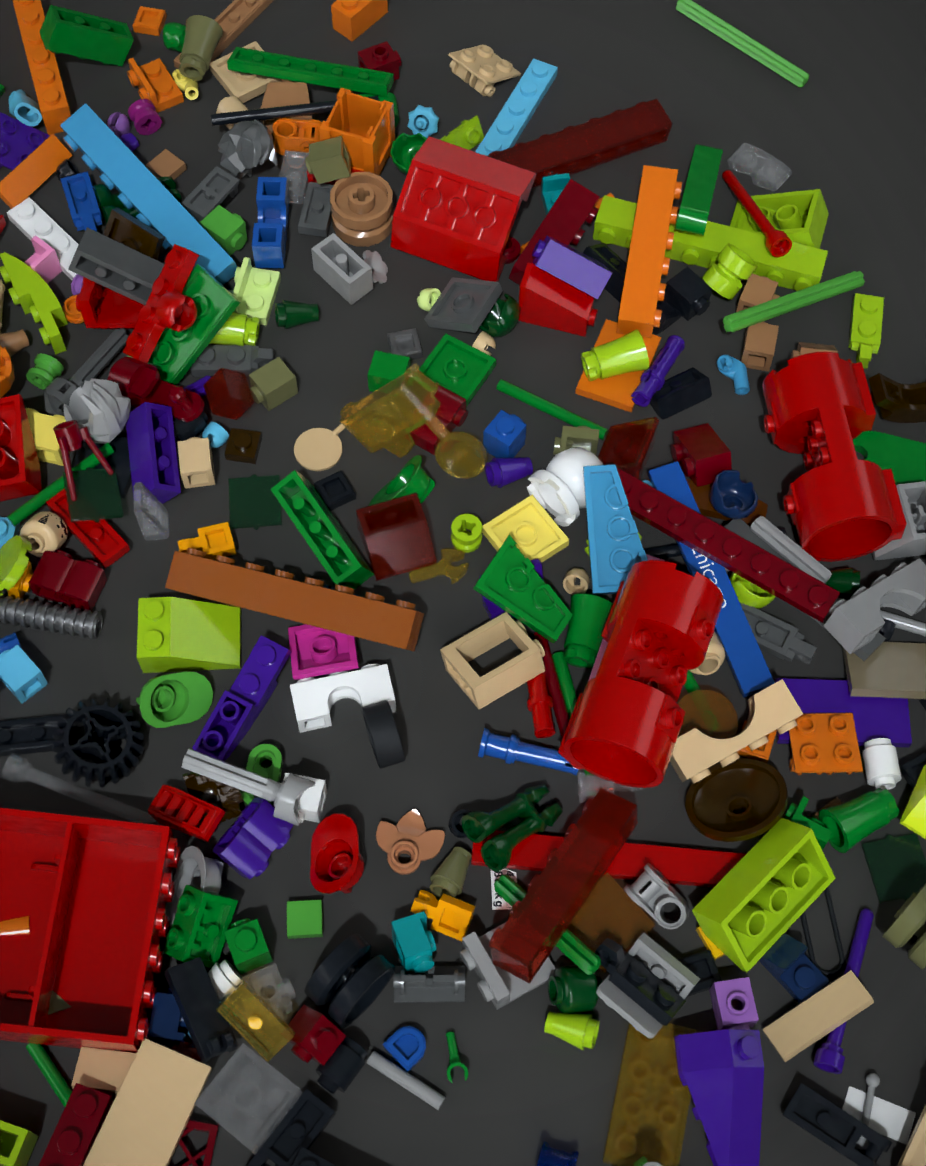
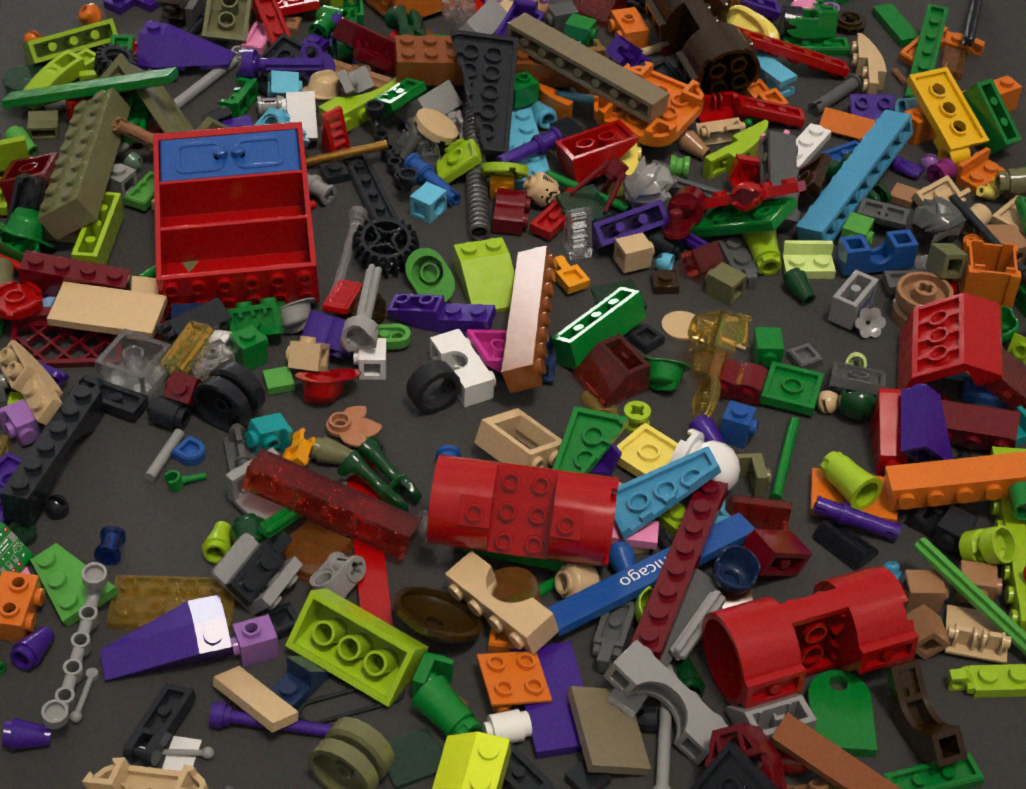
camera: 75 degrees right, 20 degrees down
(108, 88) = (949, 141): none -> yellow hinge
(189, 133) = (941, 188): none -> tan bracket
(286, 873) = (308, 354): none -> tan brick
(814, 323) = (975, 636): none -> tan hinge

